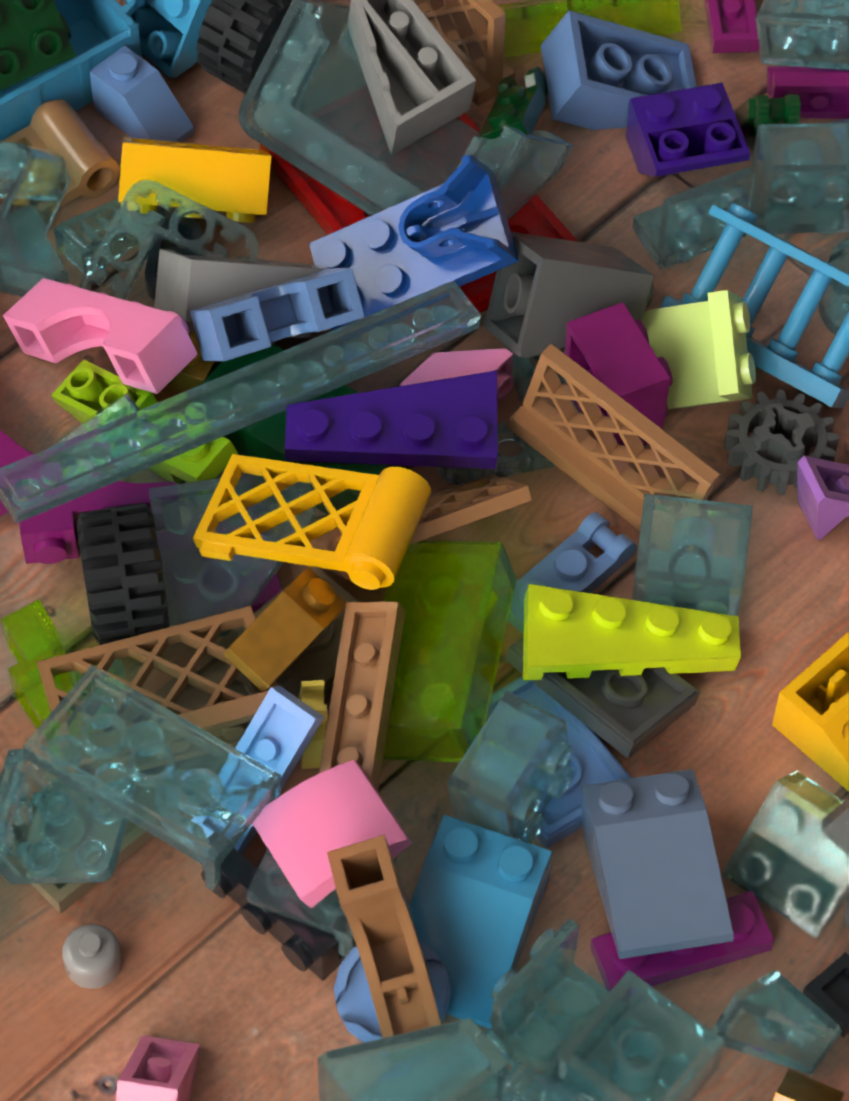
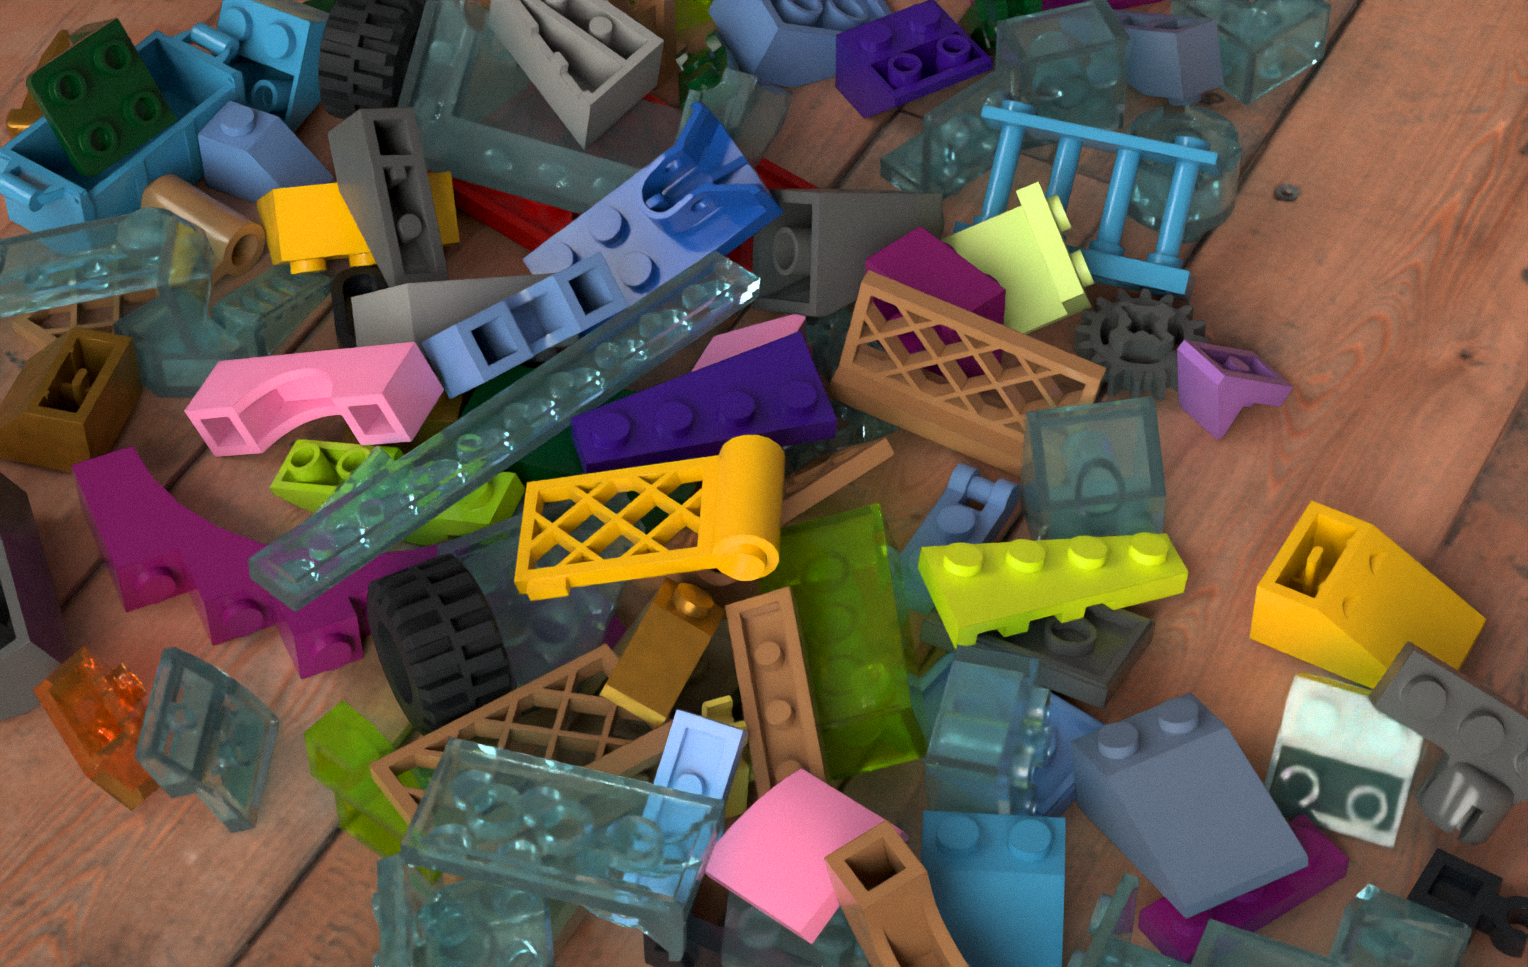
camera: 15 degrees left, 10 degrees down
(147, 230) = (326, 283): clear light blue beam -> none
(209, 174) = (389, 192): none -> dark grey slope

